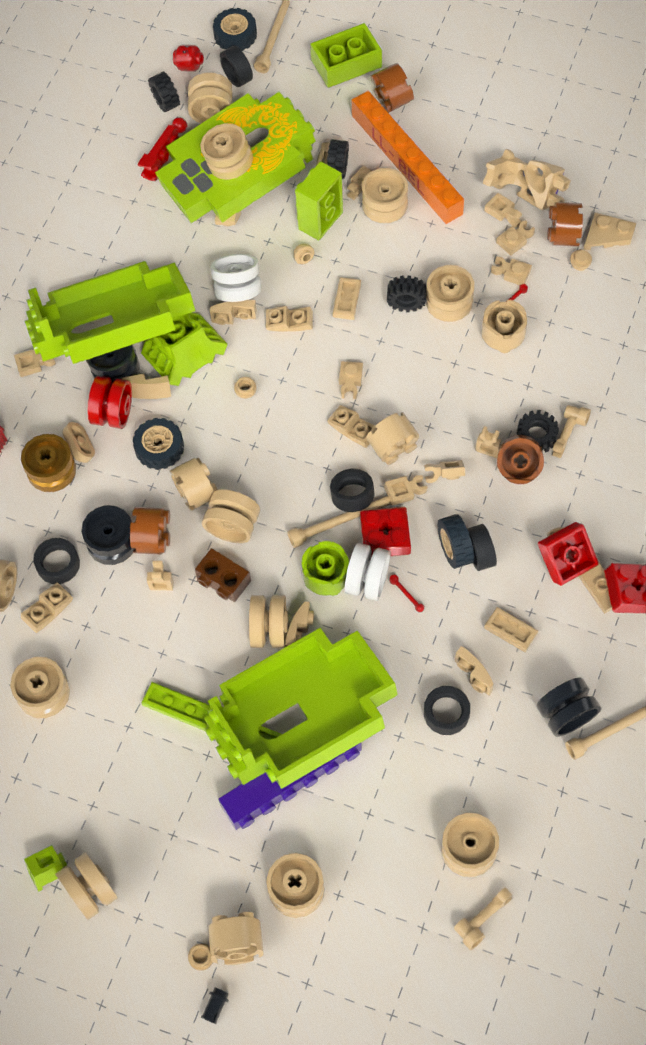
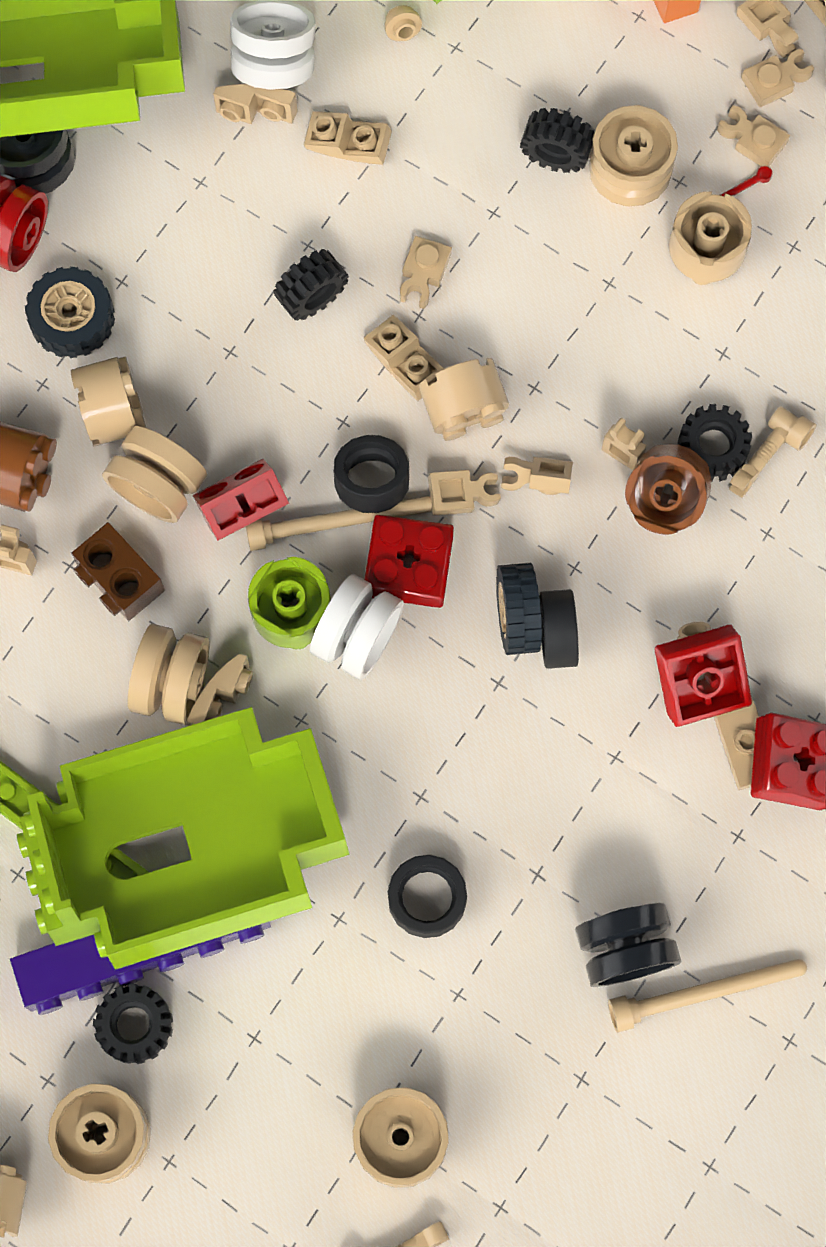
camera: 10 degrees right, 10 degrees up
(149, 389) = (79, 211): tan slope -> none
(185, 348) = (159, 153): lime slope -> none
(242, 383) = (238, 236): tan plate -> none
(282, 519) = (240, 499): none -> brick
(291, 397) = (311, 284): none -> black tyre
(302, 835) = (108, 1015): none -> black tyre
(347, 298) = (455, 123): tan plate -> none
(394, 580) = (402, 647): red hinge -> none
(479, 677) = (495, 852): tan slope -> none
(511, 629) = (572, 782): tan plate -> none

